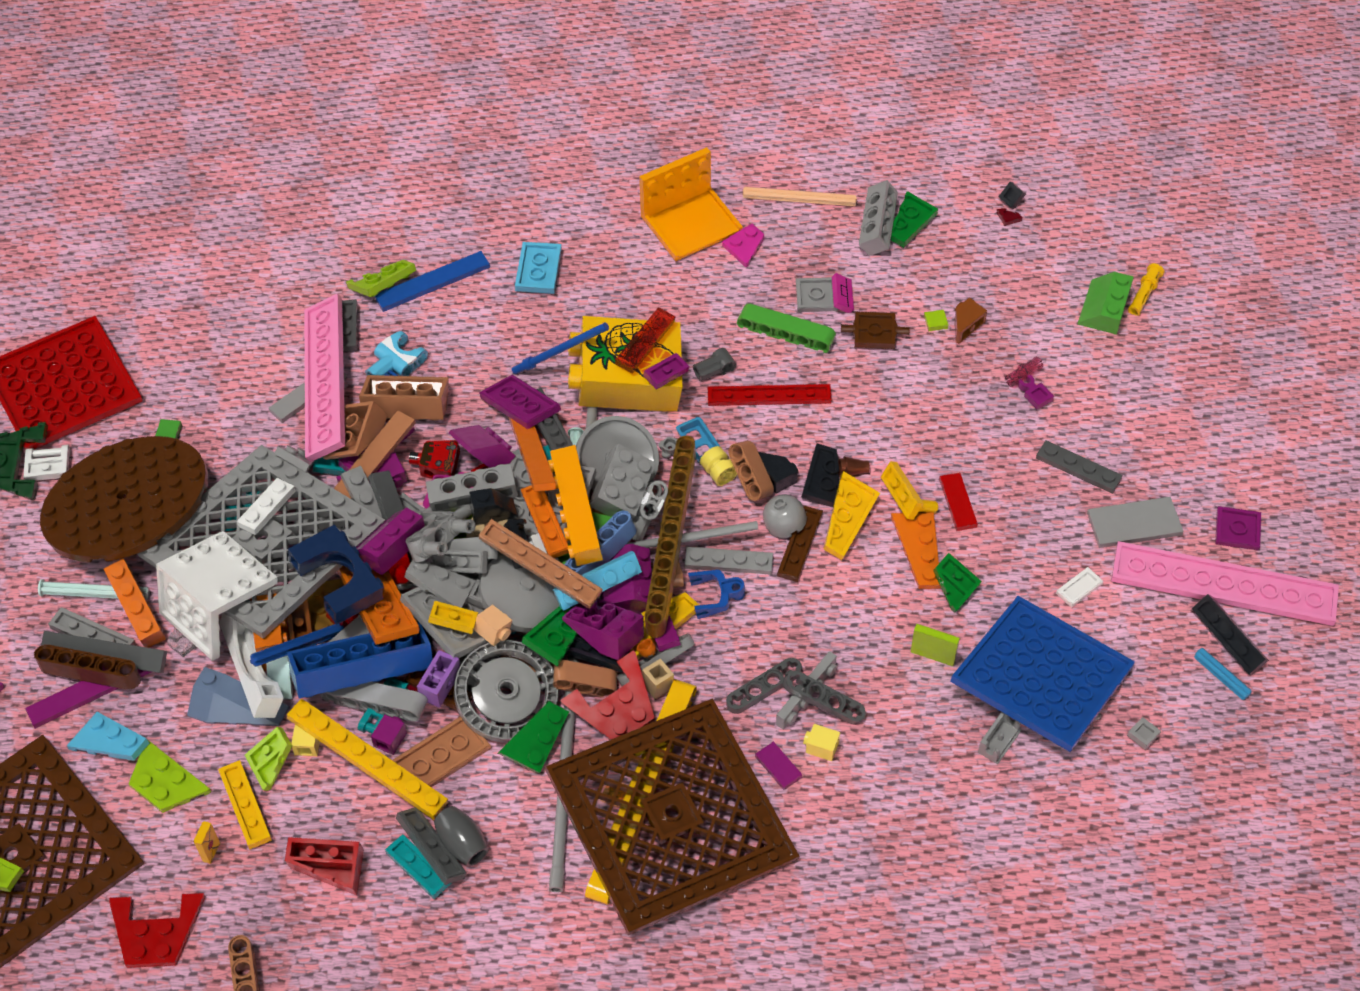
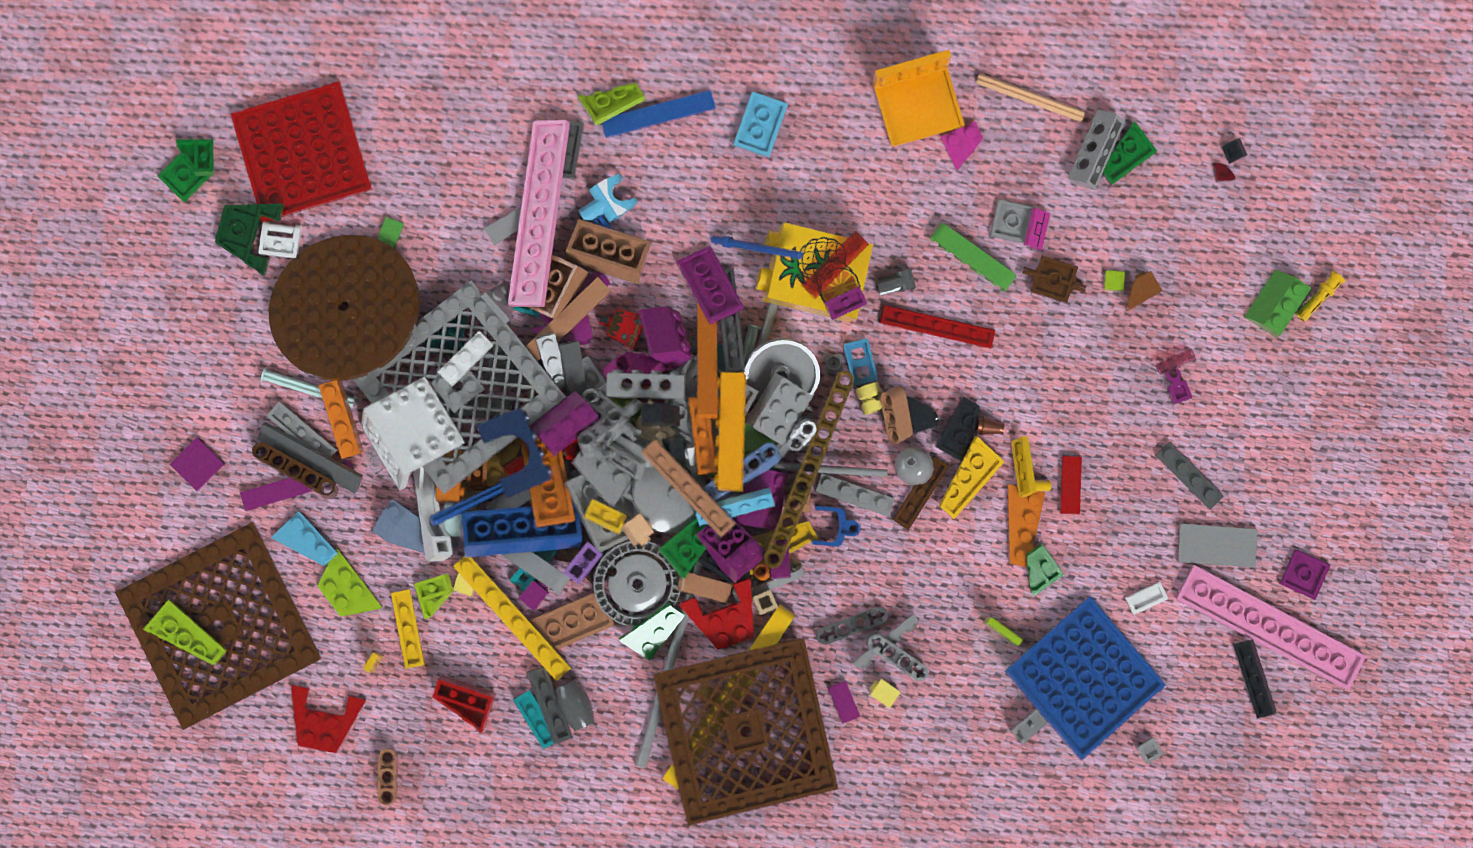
camera: 15 degrees right, 30 degrees up
(1222, 674) = (1235, 712): dark azure axle -> none

